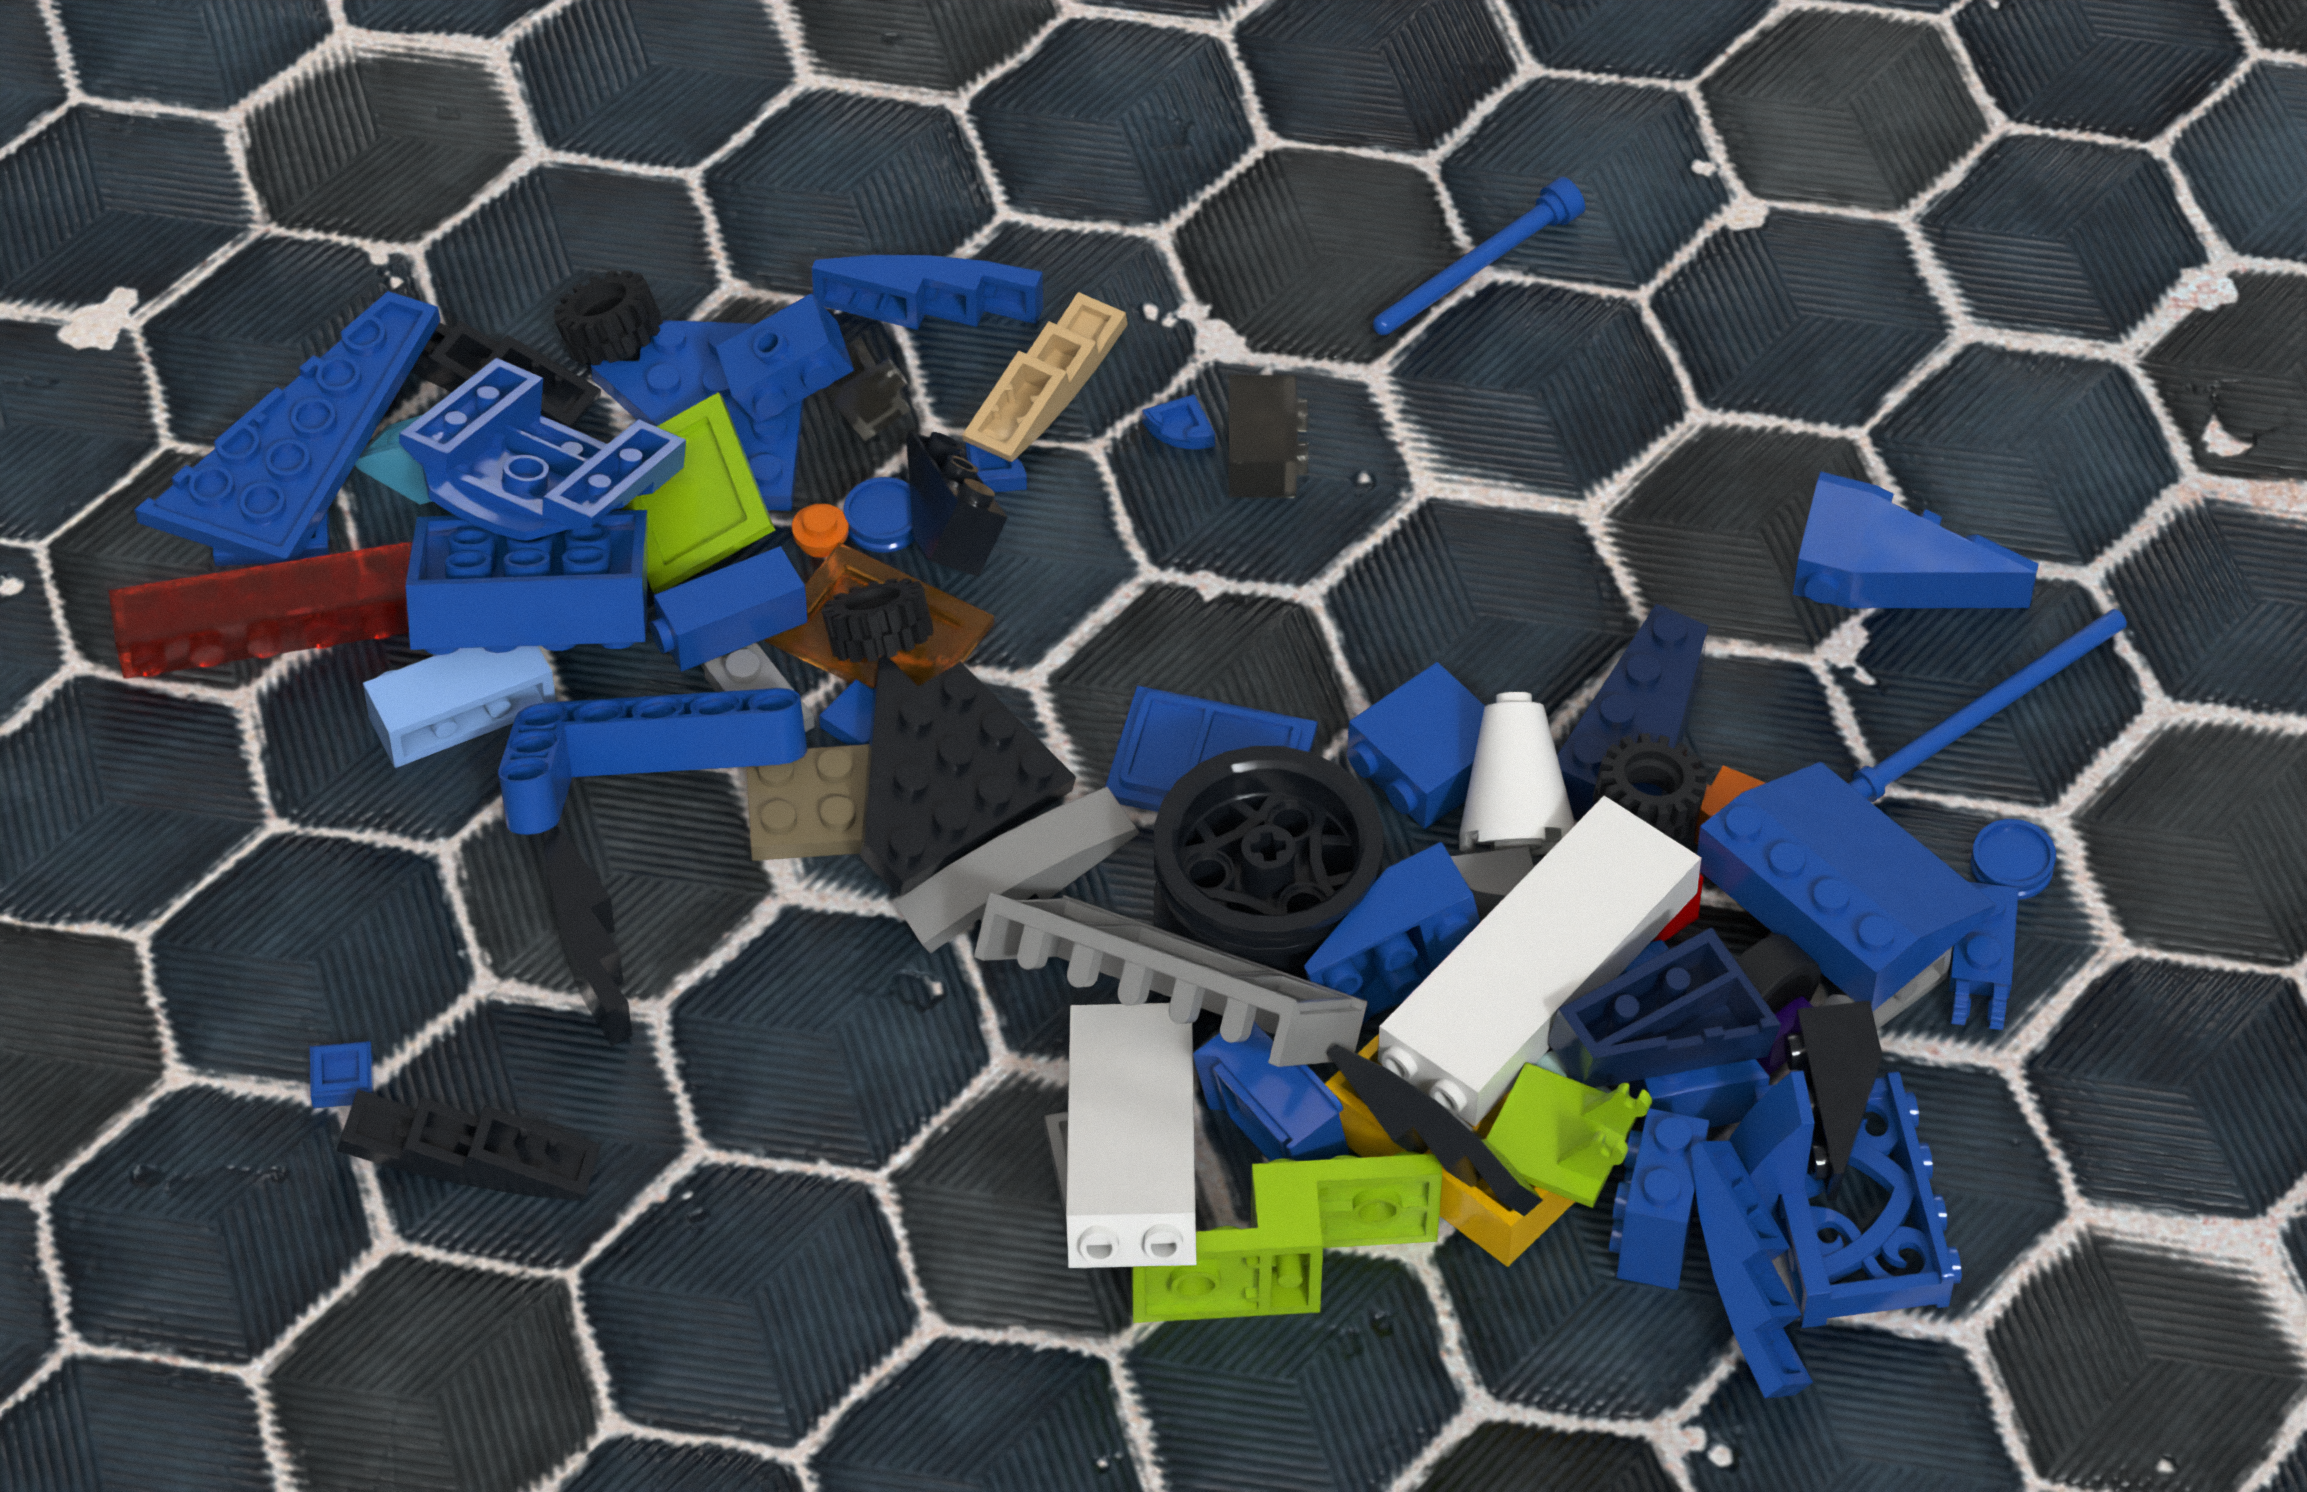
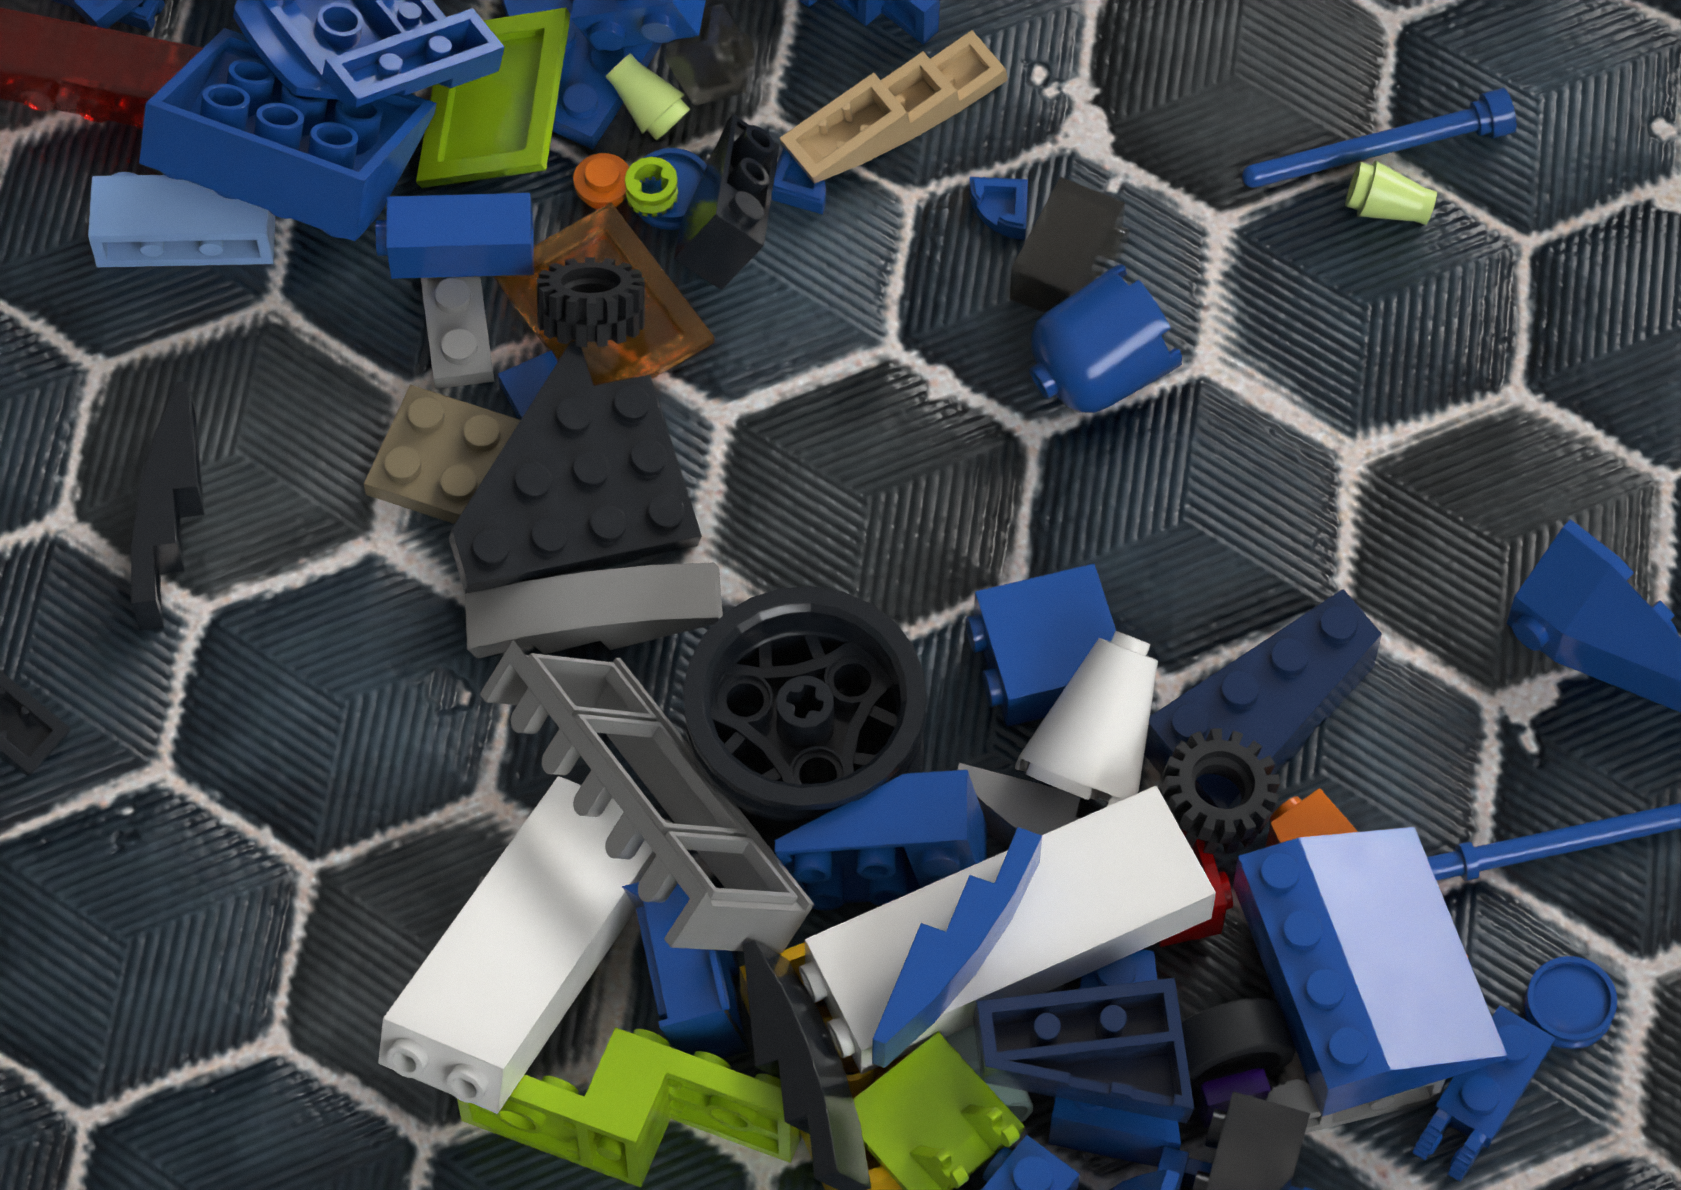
camera: 25 degrees right, 10 degrees up
(640, 736) = (303, 326): blue beam -> none
(826, 445) = (649, 98): none -> yellowish green cone
(876, 527) = (656, 202): none -> lime bush
(1175, 732) = (843, 543): blue piece -> none
(1342, 491) = (1101, 344): none -> blue cylinder
(1506, 295) = (1388, 195): none -> yellowish green cone
(1513, 983) = (946, 961): none -> blue slope

